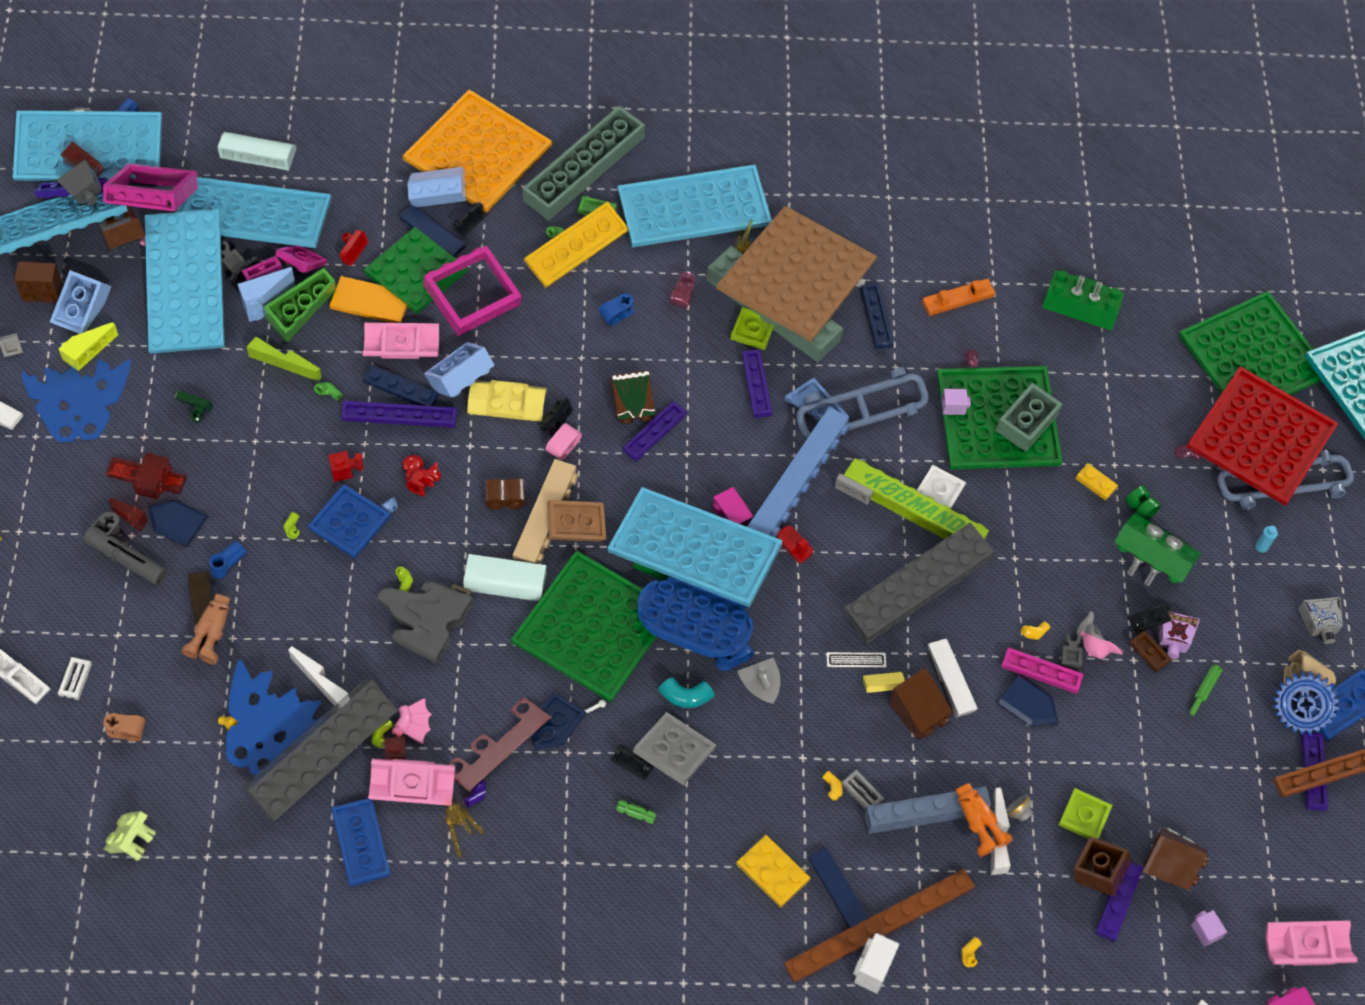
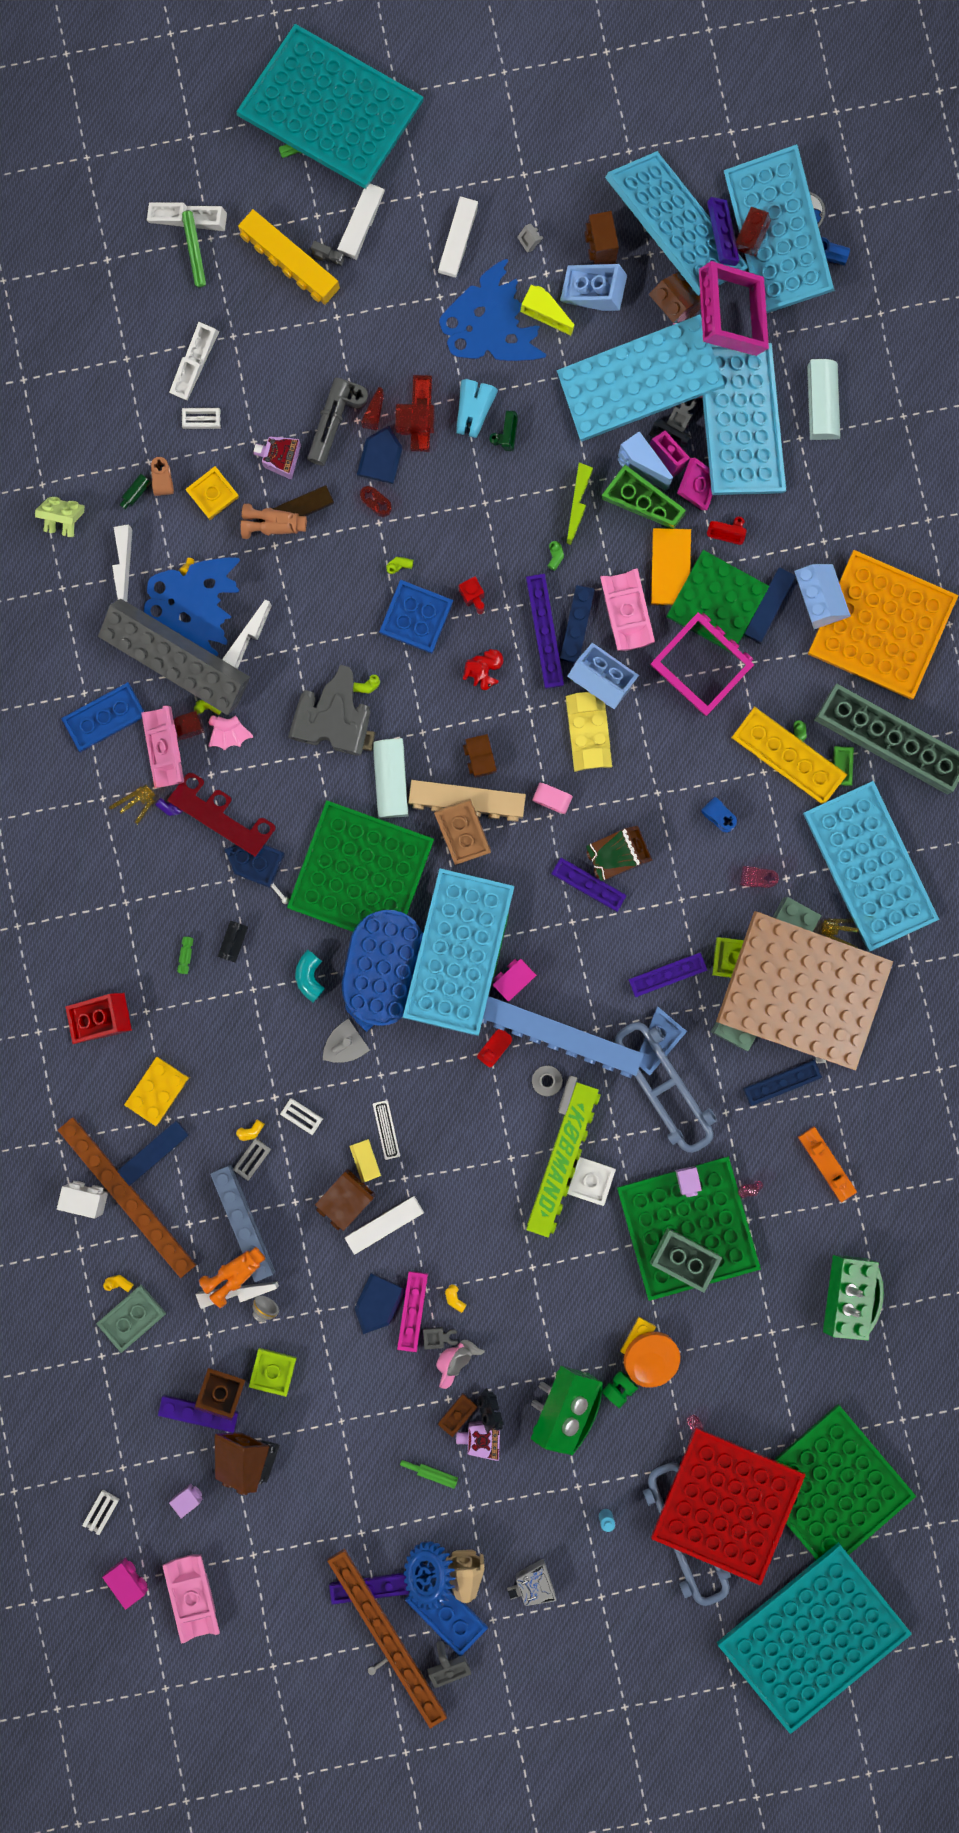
camera: 85 degrees right, 25 degrees up
(82, 183) = (718, 240): dark grey torso -> none
(129, 757) = (134, 491): none -> dark green cylinder
(142, 609) = (279, 455): none -> torso
(157, 426) = (474, 406): none -> medium azure piece
(158, 682) = (212, 493): none -> yellow plate
(212, 788) = (121, 571): none -> white slope
(220, 534) = (378, 498): none -> clear red beam
(227, 559) = (350, 516): blue piece -> none
(390, 505) = (443, 648): medium blue hinge -> none
(469, 219) = (793, 638): black hinge -> none
(560, 411) = (588, 787): black hinge -> none
(674, 748) = (249, 977): light grey plate -> none
(683, 913) = (98, 1018): none -> red slope
(816, 745) = (288, 1107): none -> white tile
(832, 512) = (537, 1081): none -> light grey piece
(918, 583) = (471, 1177): dark grey brick -> none
(1009, 948) = (131, 1318): none -> sand green tile
(1117, 470) = (652, 1359): none -> orange piece

